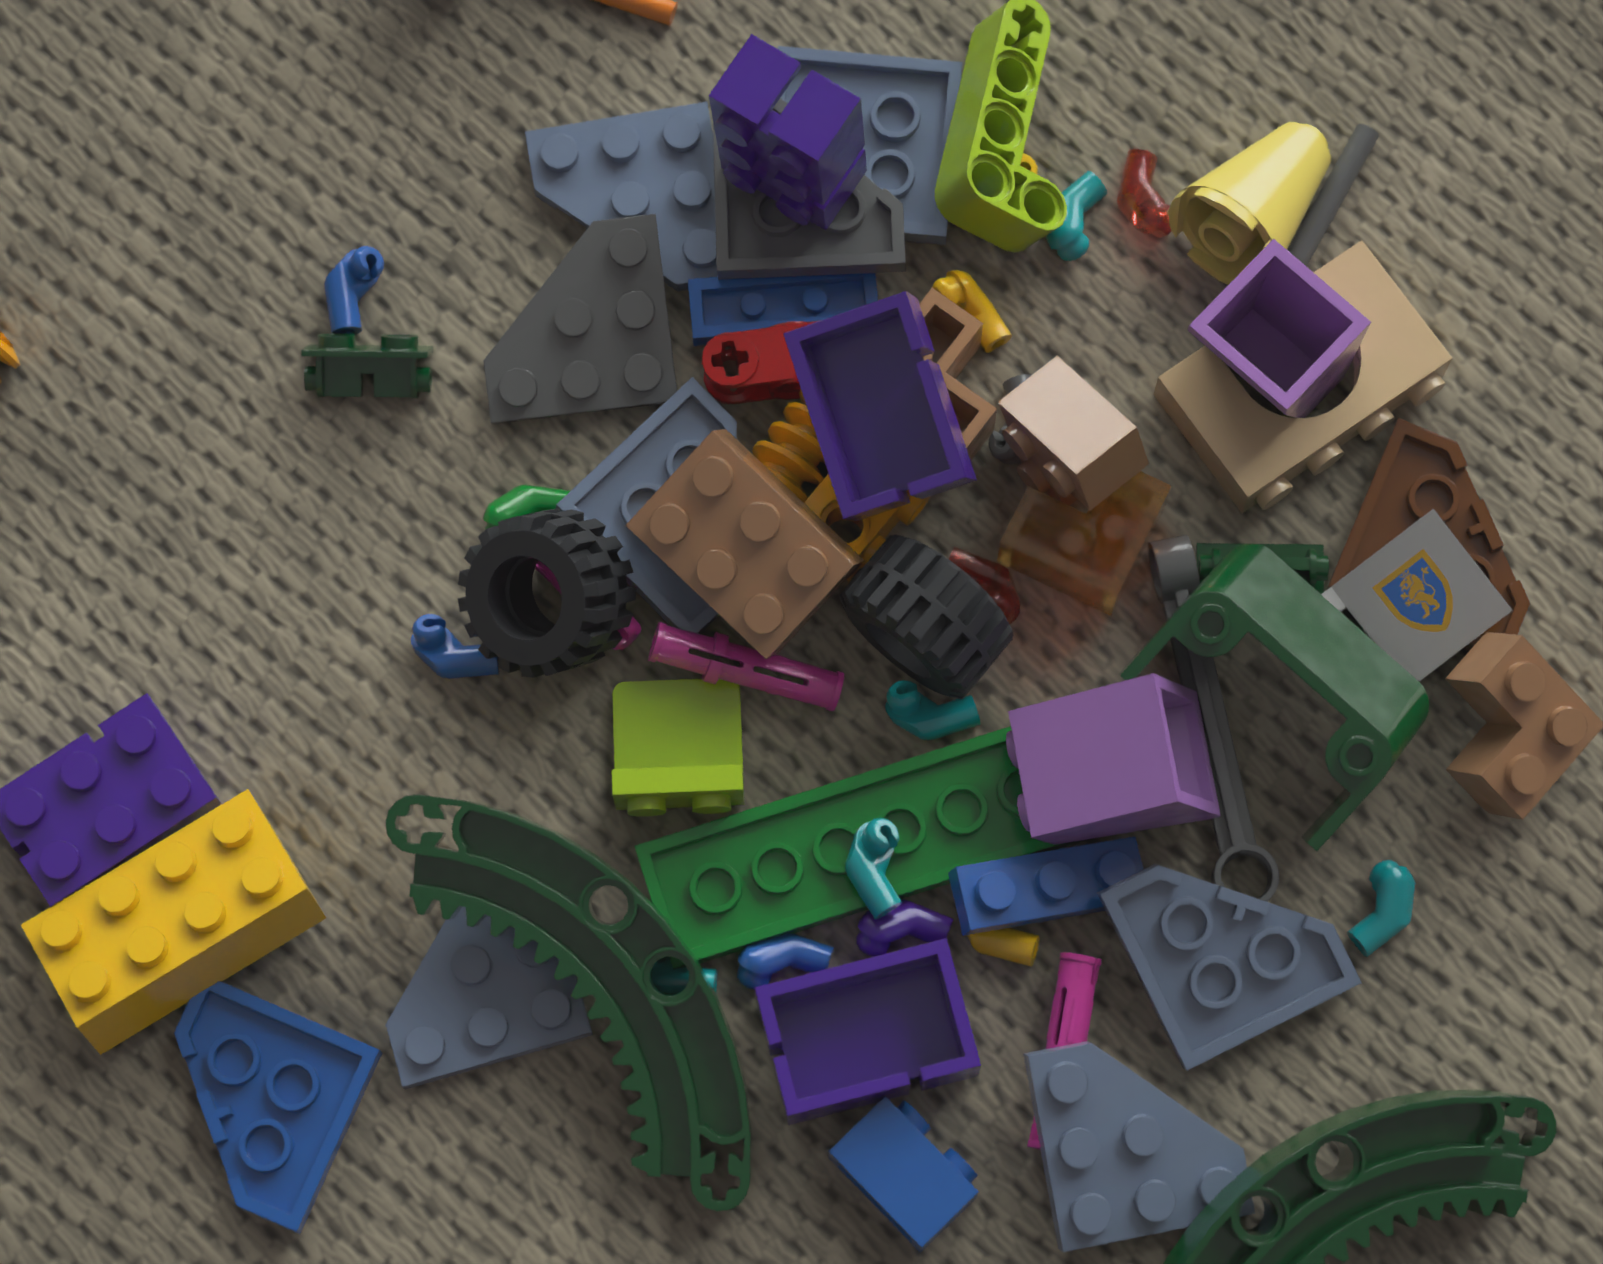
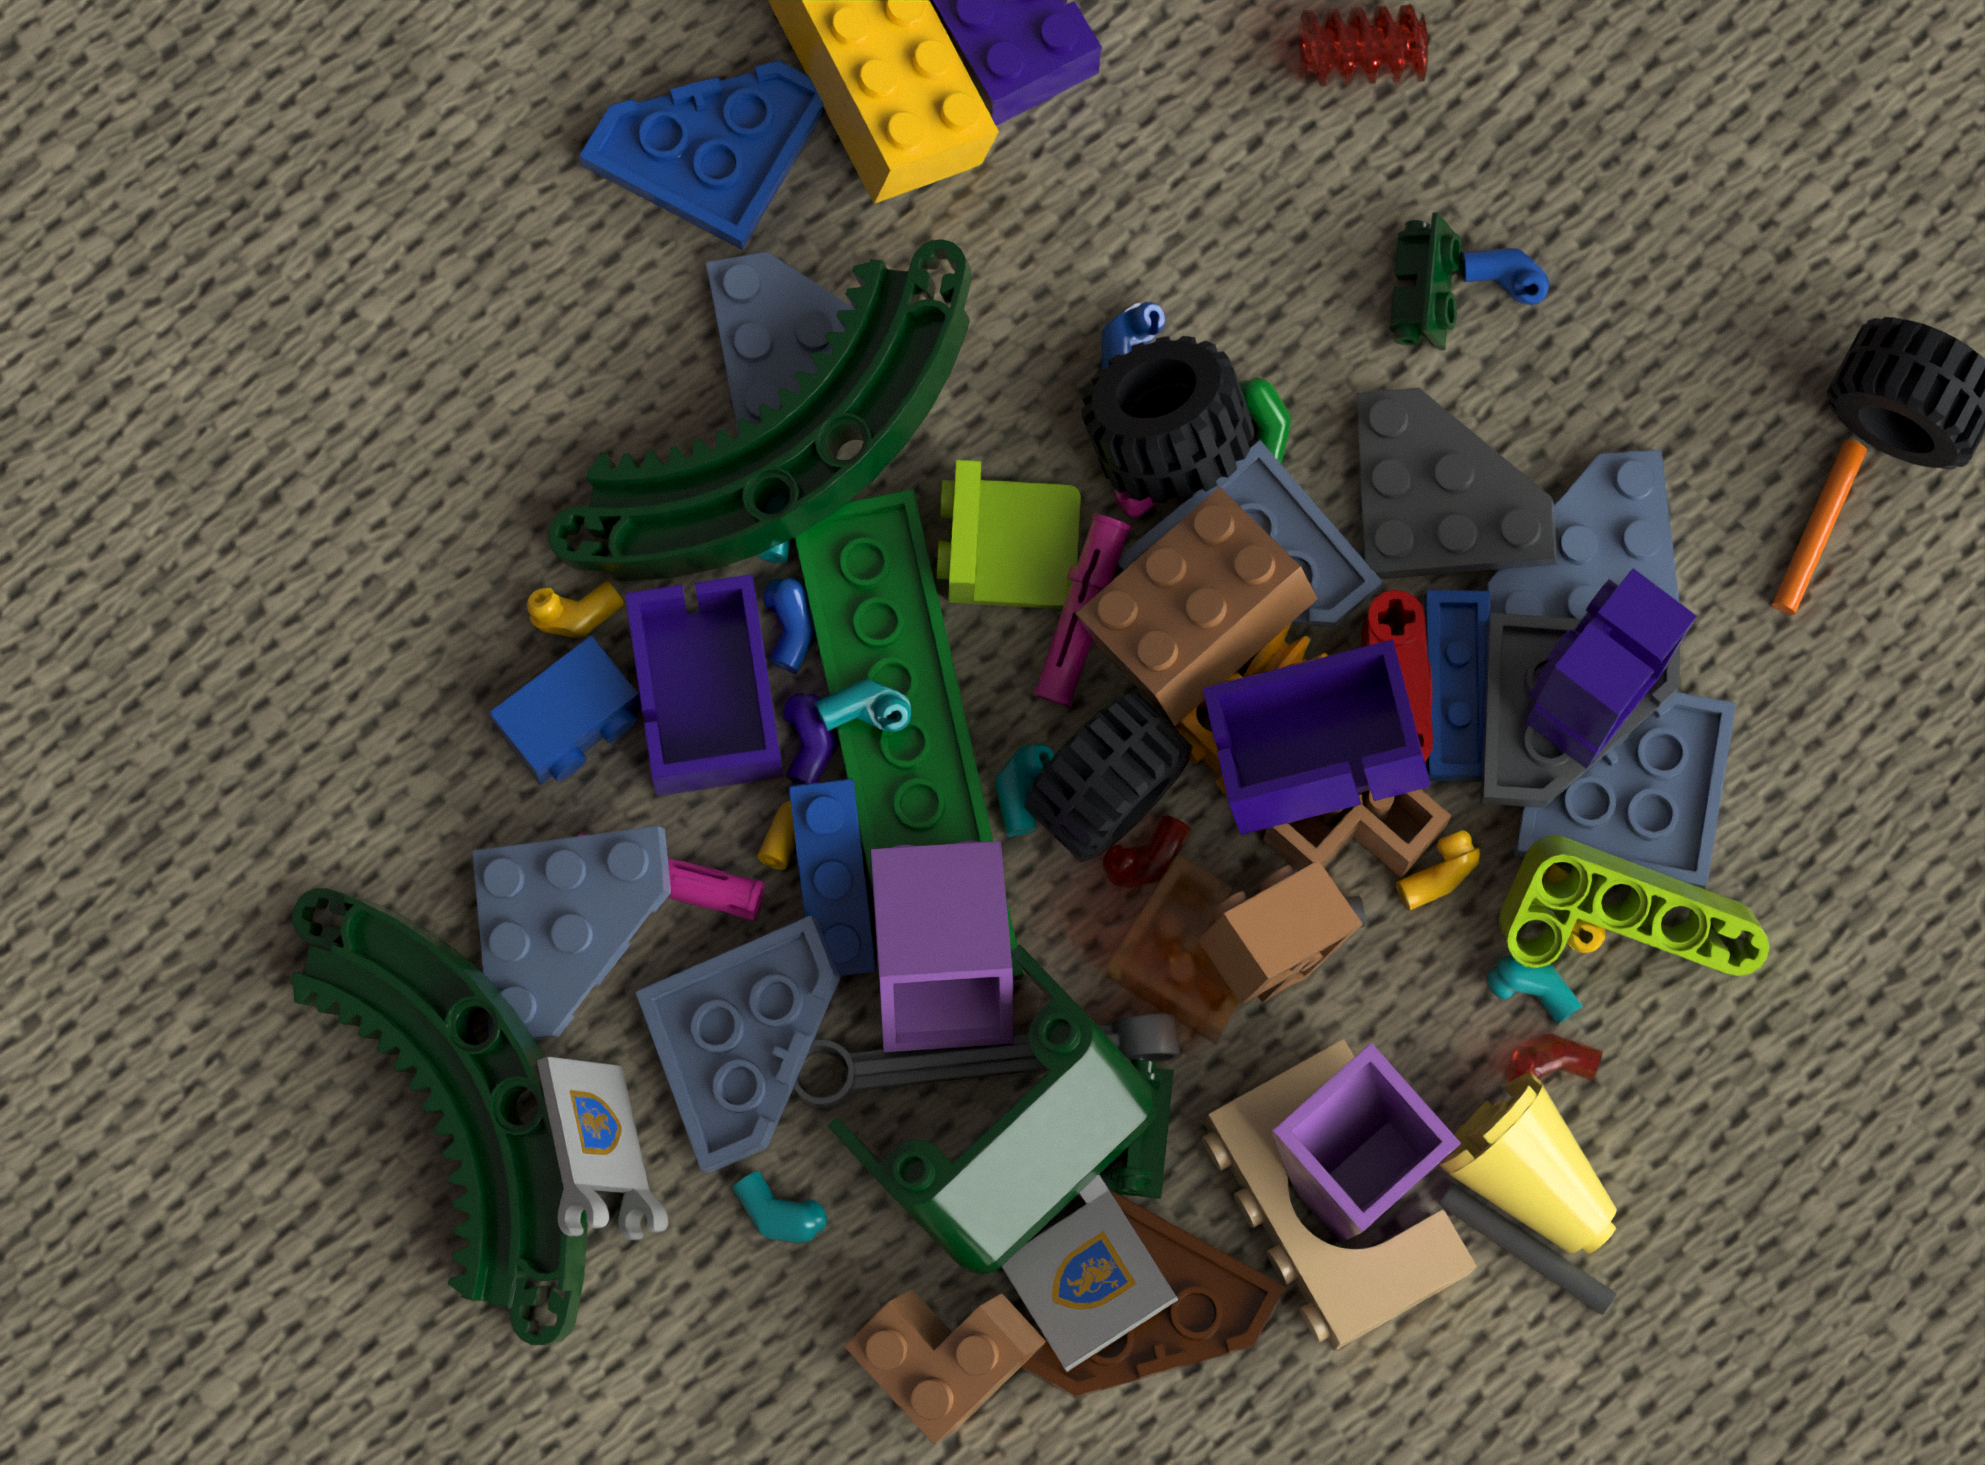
camera: 90 degrees right, 0 degrees up
(117, 442) = (1363, 44): none -> clear red piece
(798, 1182) = (573, 617): none -> yellow arm
(1358, 1083) = (597, 1147): none -> light grey flag

